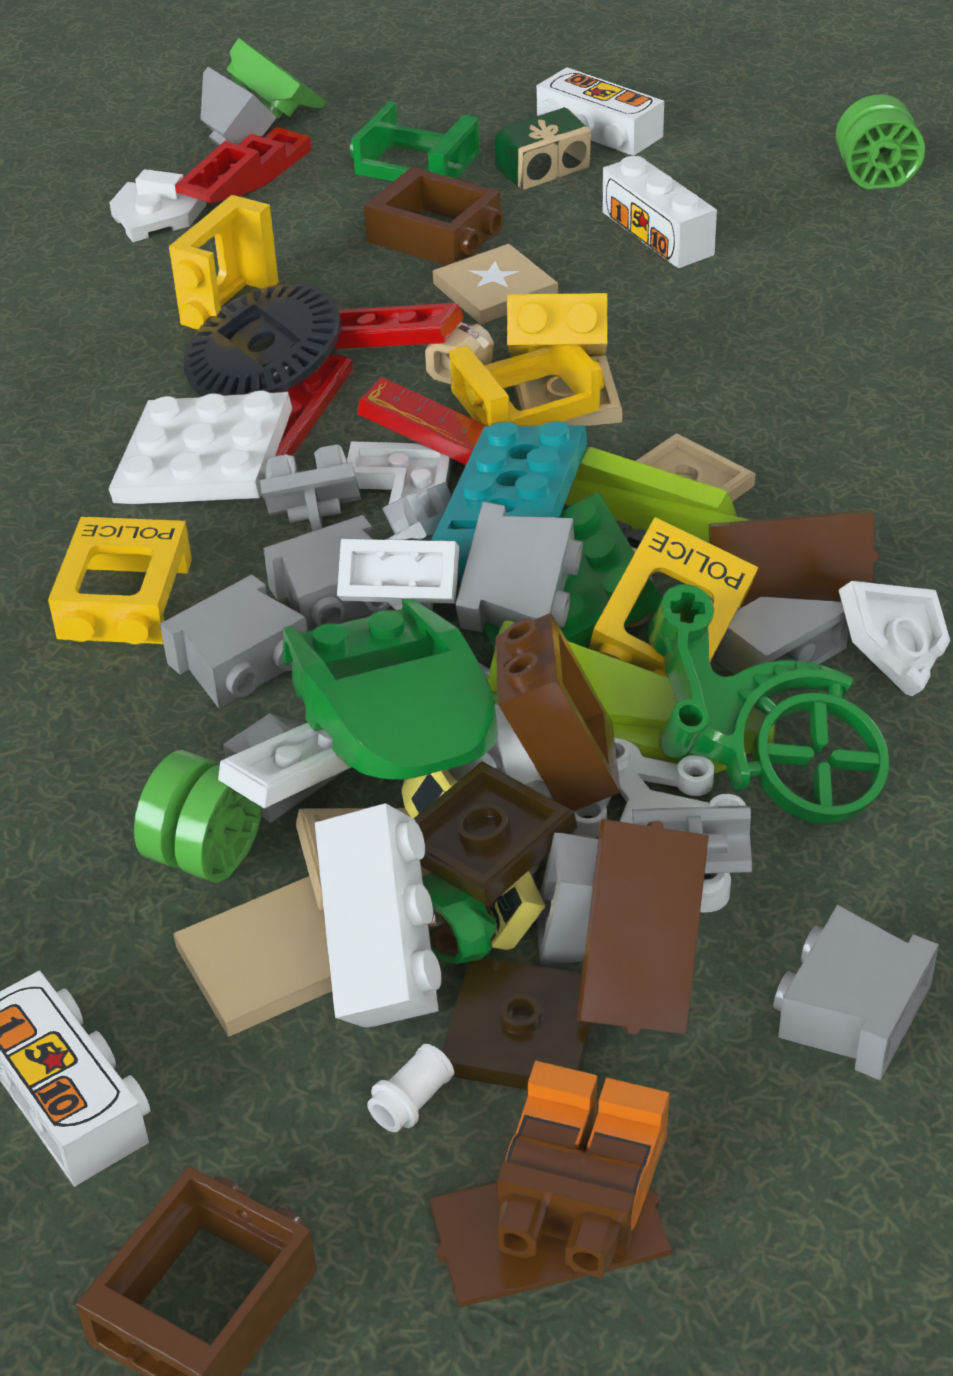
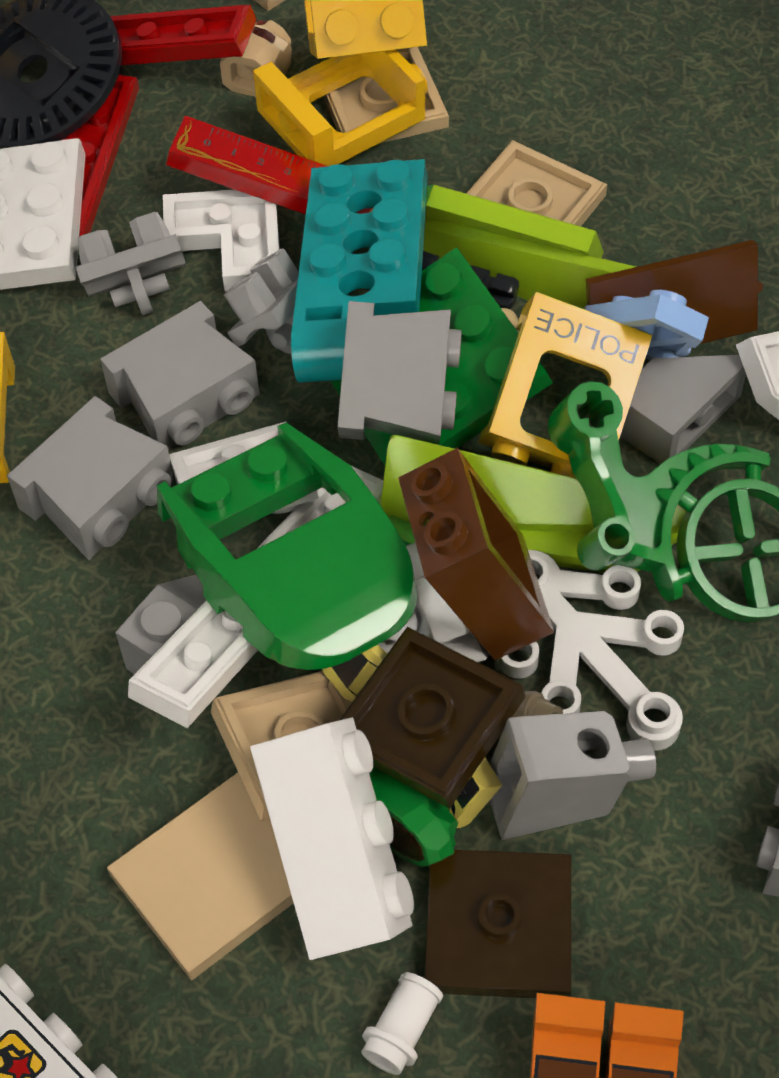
camera: 10 degrees left, 15 degrees up
(194, 818) = (98, 729): bright green wheel -> none
(398, 571) = (267, 394): white bracket -> none
(642, 927) = (615, 808): reddish brown piece -> none
(727, 830) = (644, 684): light grey hips -> none
(776, 555) = (662, 315): none -> light blue wing

